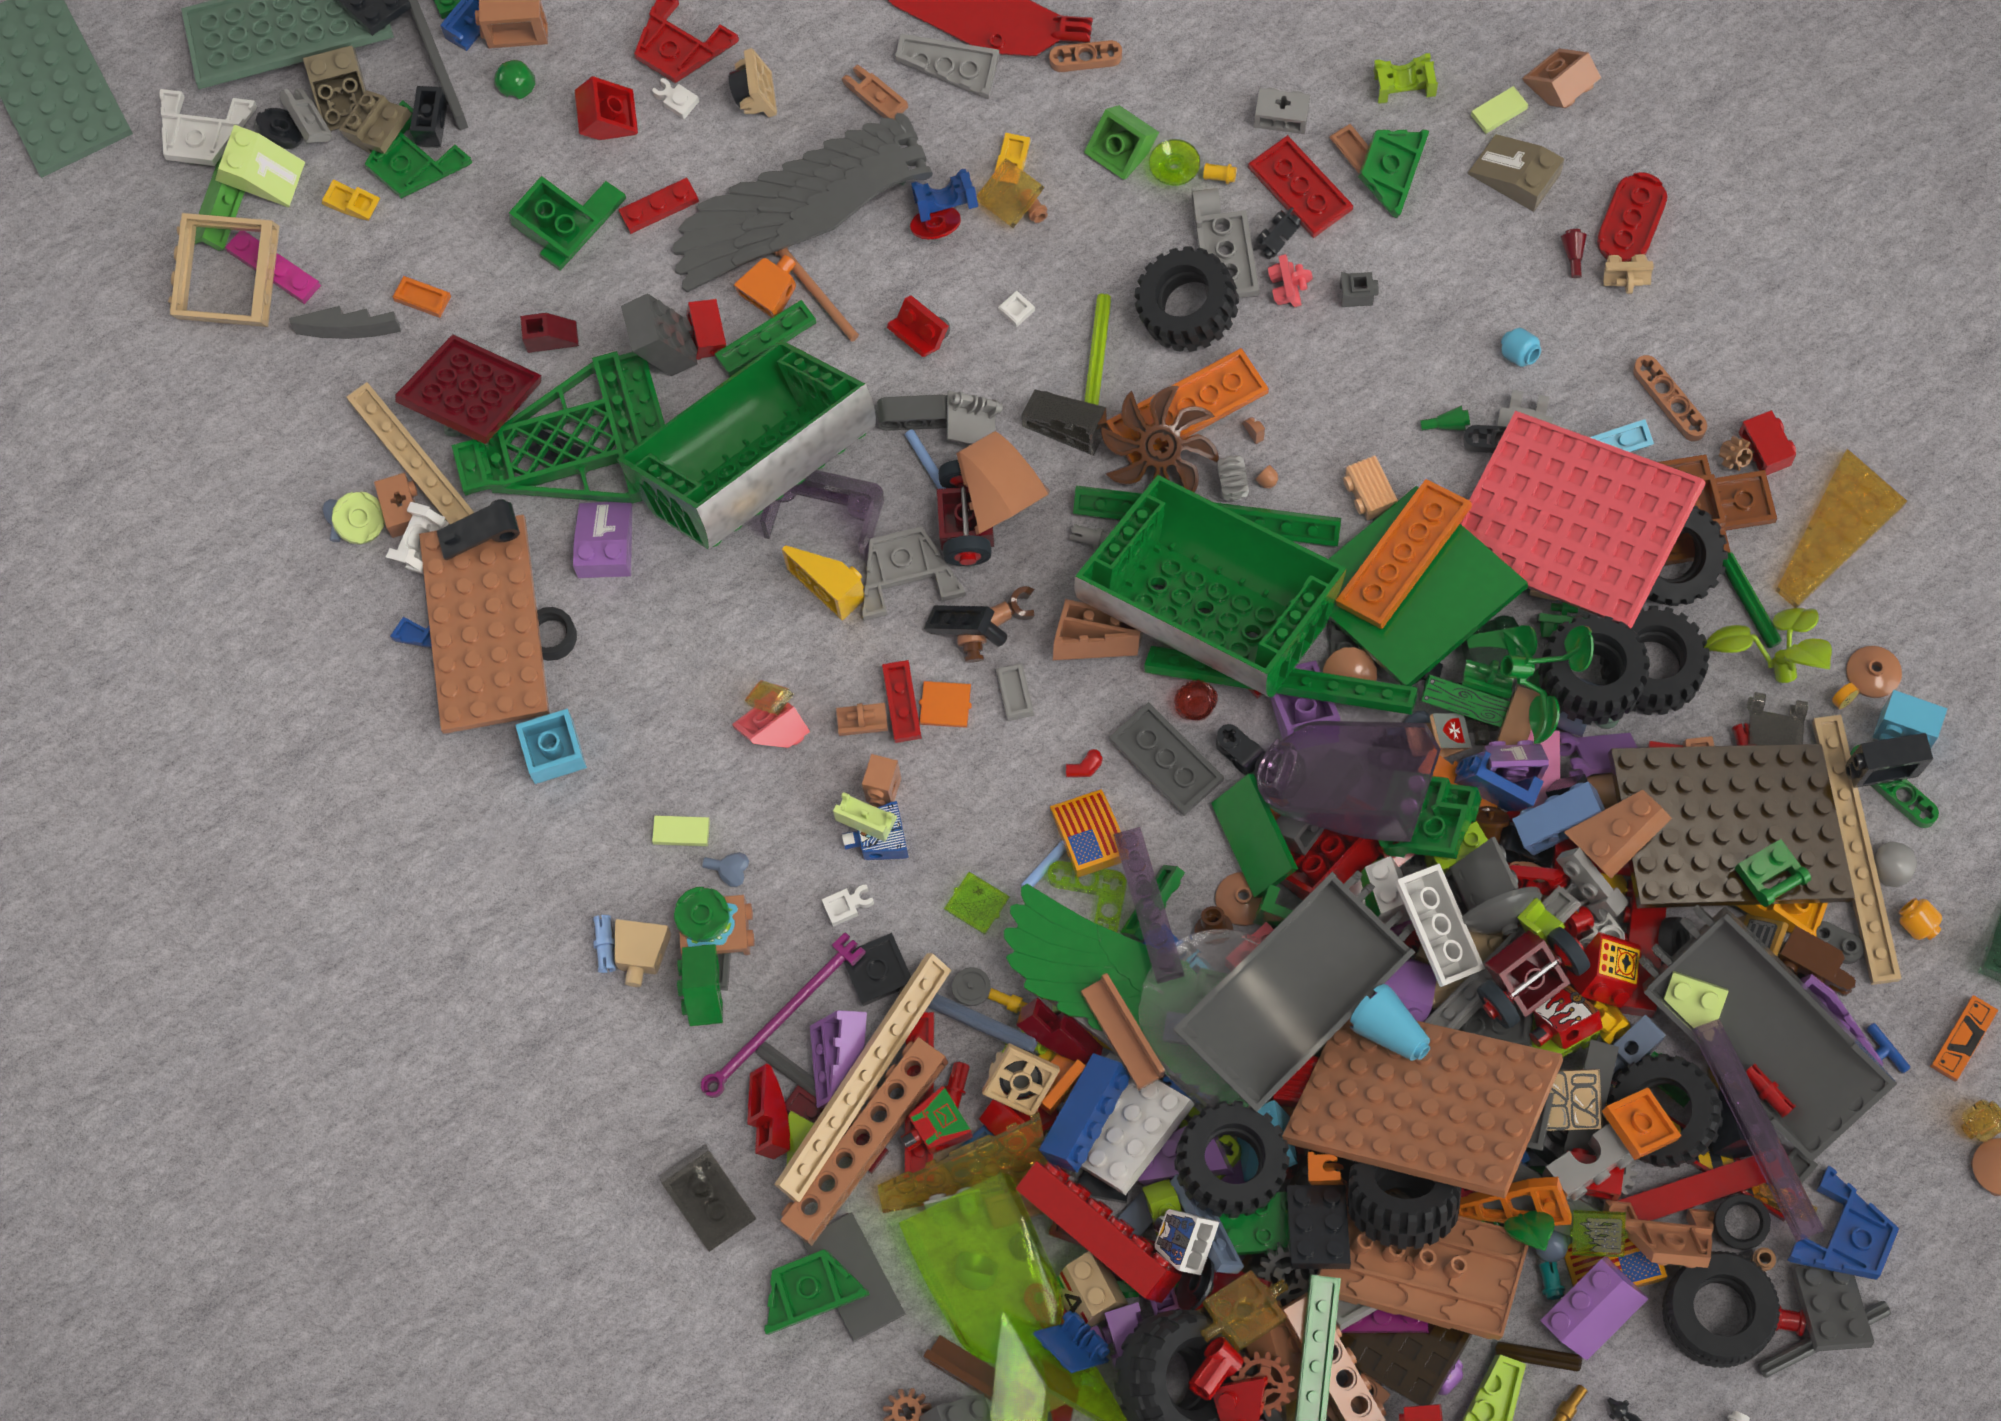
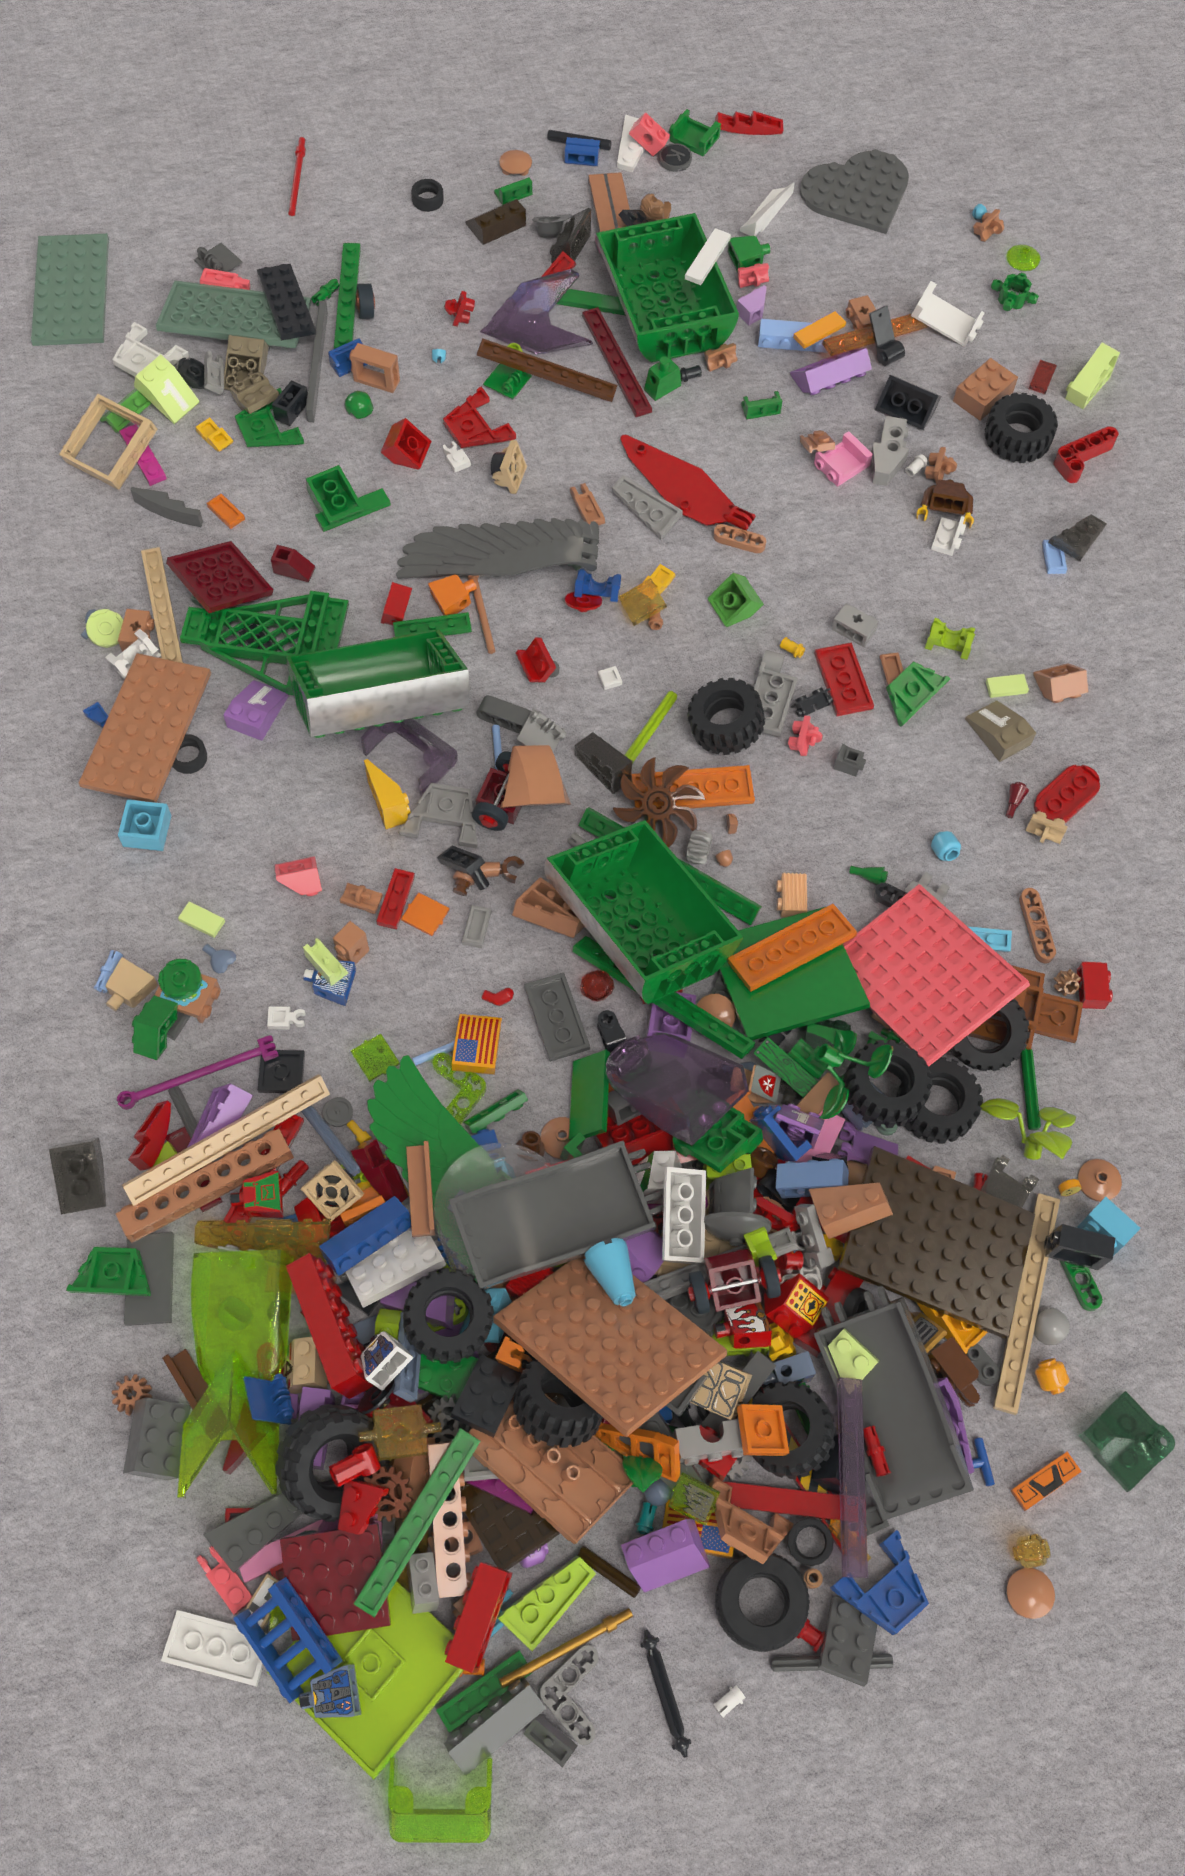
camera: 15 degrees right, 5 degrees down
(492, 522) = (184, 663): black door -> none
(658, 205) = (408, 517): red plate -> none
(659, 334) = (359, 592): dark grey brick -> none
(769, 697) = (306, 856): clear yellow tile -> none
(1149, 905) = (486, 1109): clear purple plate -> none
(1174, 153) = (764, 622): clear neon green dish -> none
(1767, 865) = (950, 1282): green plate -> none
(1845, 519) = (1128, 1062): clear yellow wing -> none

